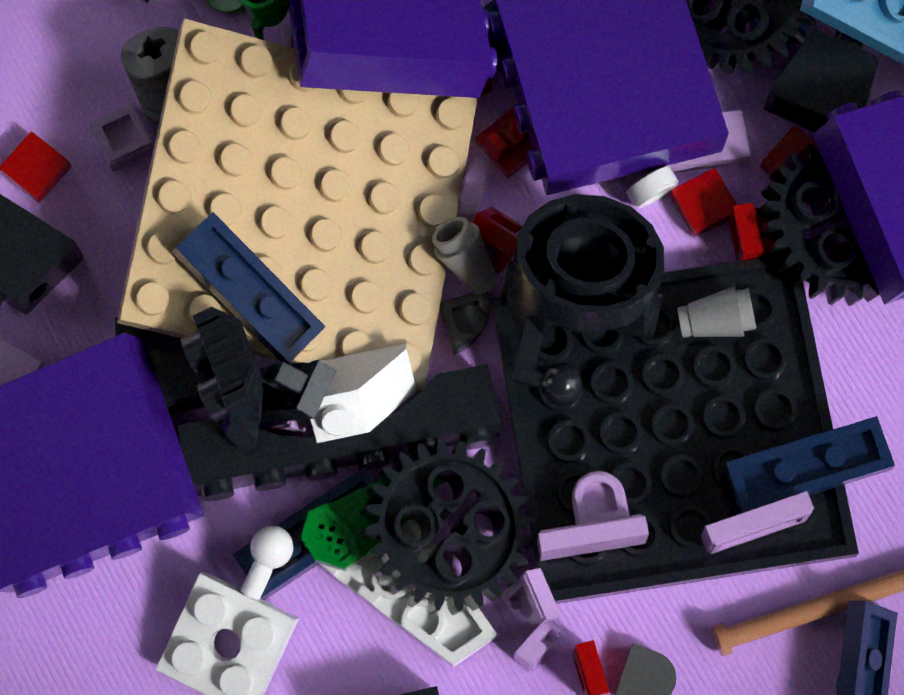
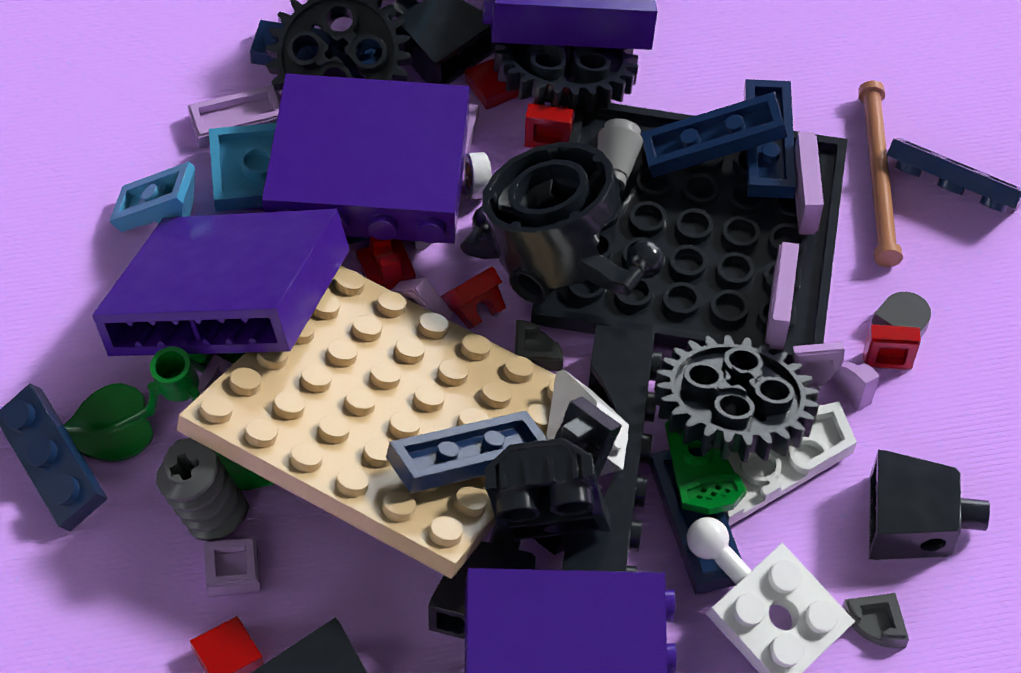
camera: 75 degrees left, 20 degrees down
(465, 254) = (482, 311): light grey cone -> none
(598, 498) = (746, 289): lavender tile -> none
(703, 202) = (501, 145): red tile -> none
(775, 405) = (713, 134): none -> dark blue plate

